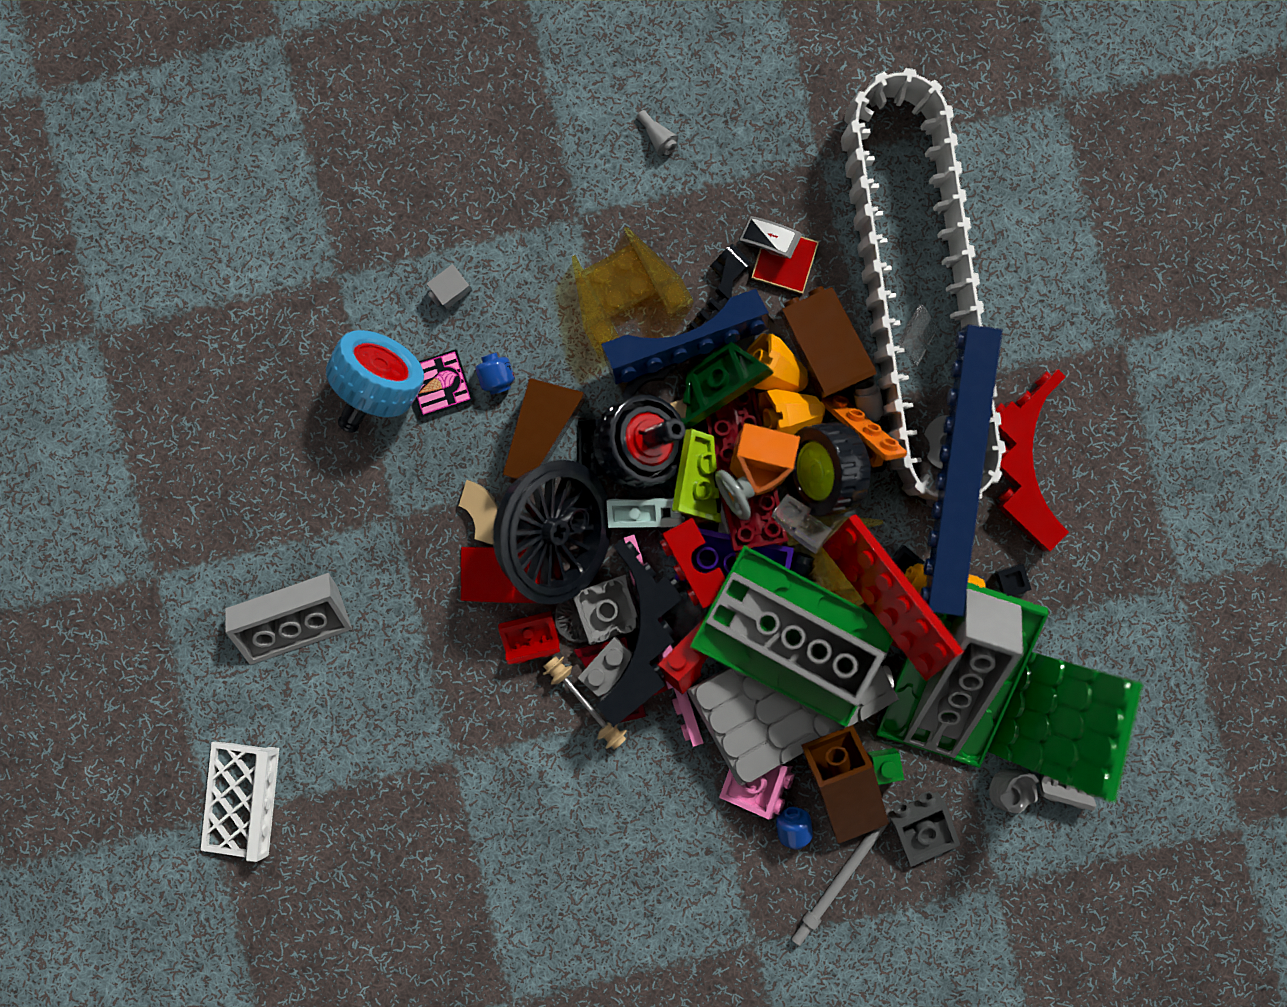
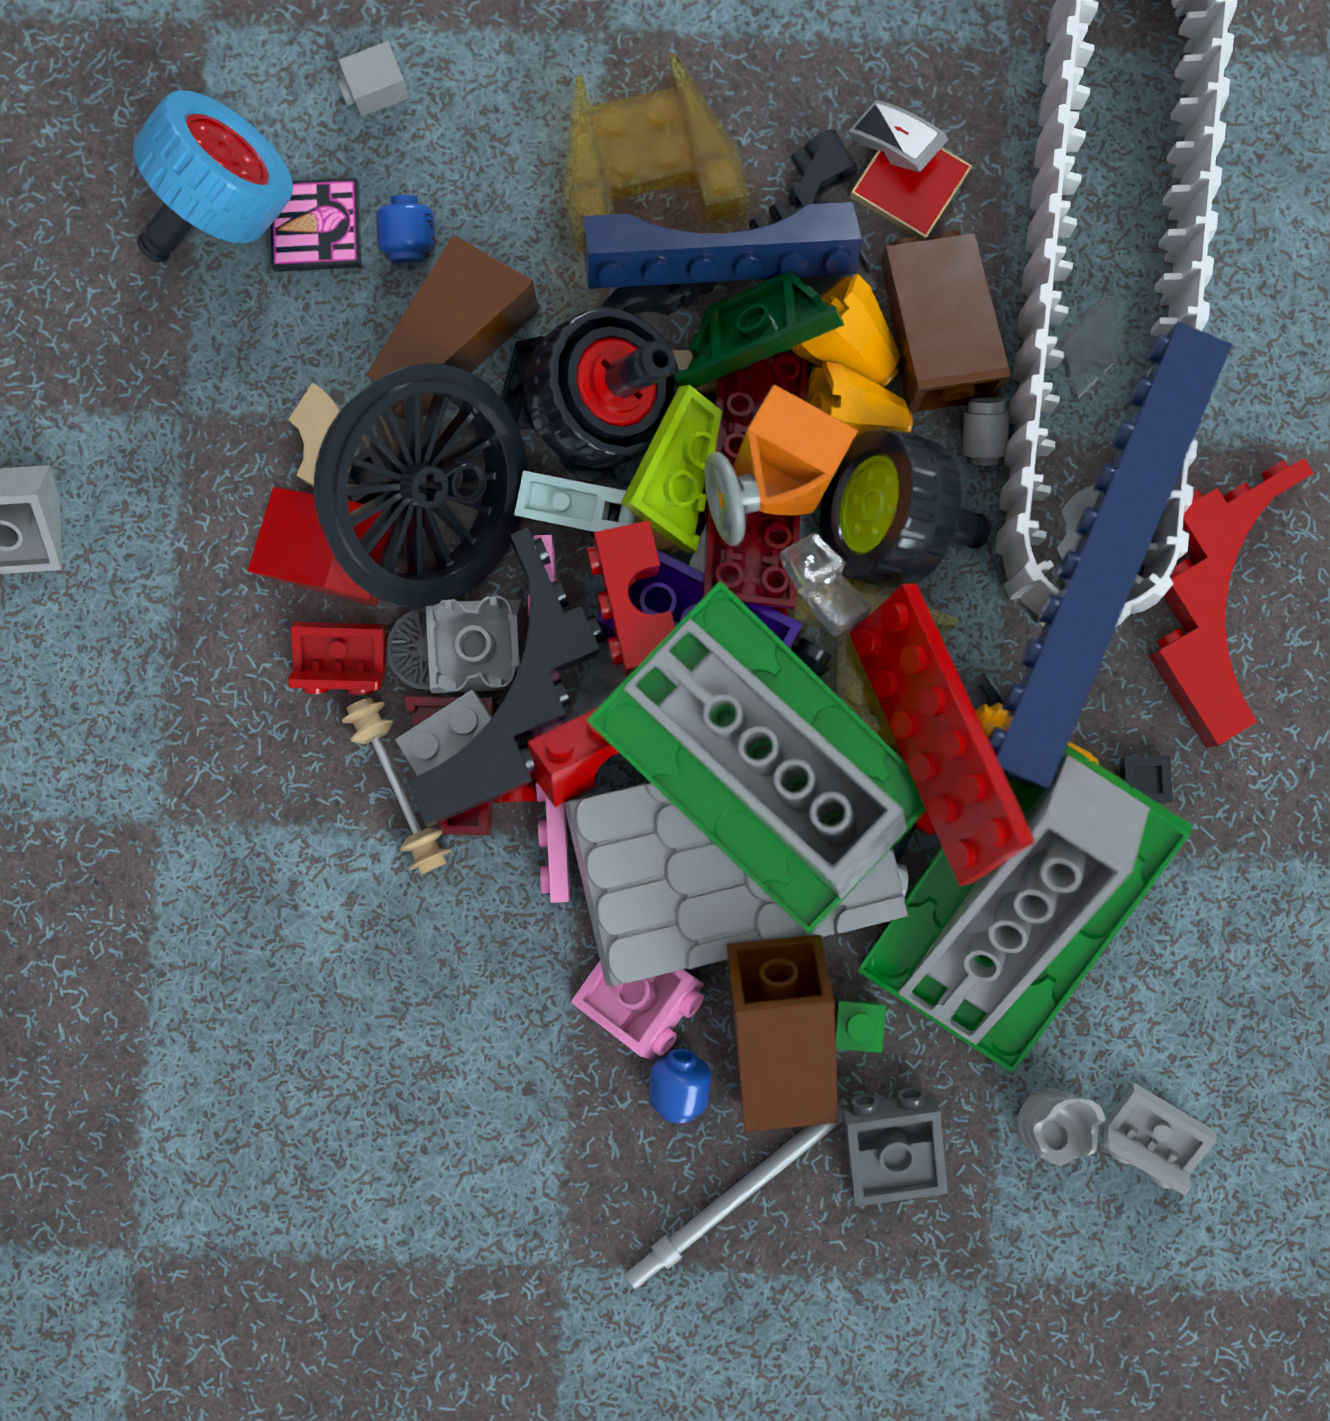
camera: 20 degrees right, 5 degrees down
(877, 442) = (980, 482): orange bracket -> none
(1070, 724) = (1184, 1018): green piece -> none

